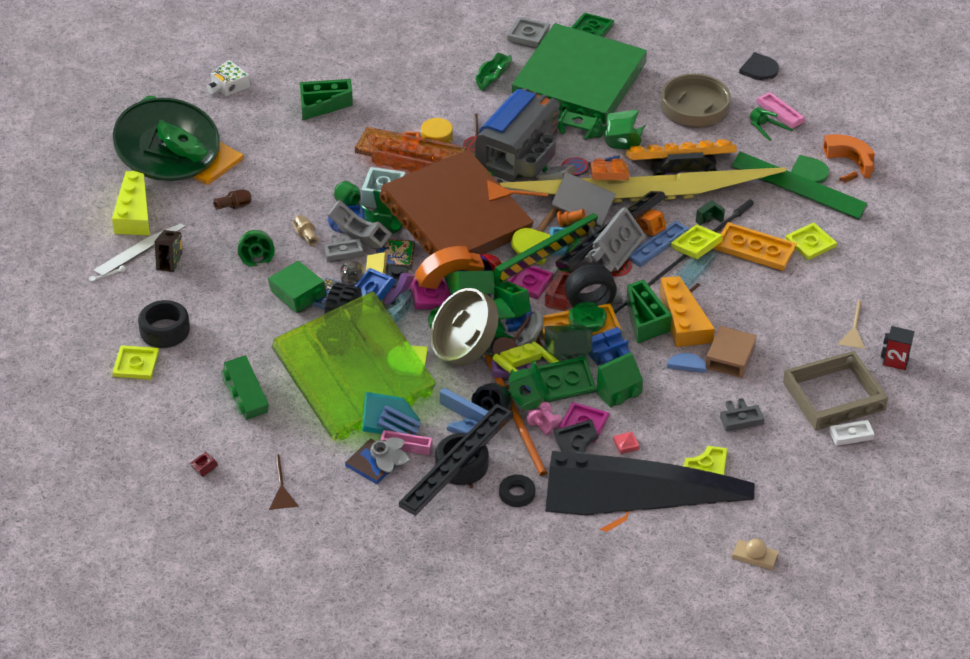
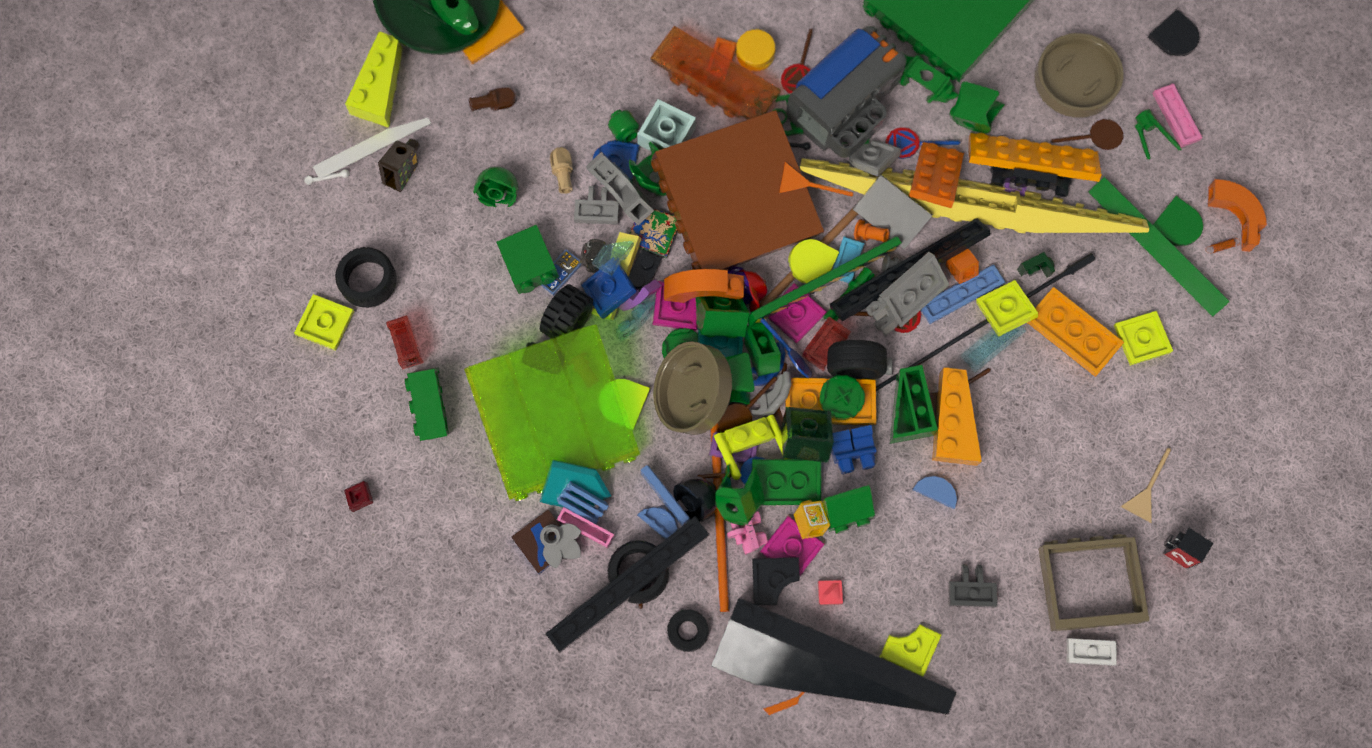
camera: 15 degrees right, 30 degrees up
(209, 356) = (405, 342): none -> clear red panel
(282, 497) = (431, 568): reddish brown piece -> none
(367, 265) = (611, 256): none -> clear light blue slope
(542, 302) = (796, 358): none -> blue piece
(592, 395) = (811, 519): none -> yellow brick
(728, 131) = (1103, 133): none -> reddish brown piece
(731, 351) = (992, 491): medium nougat brick -> none

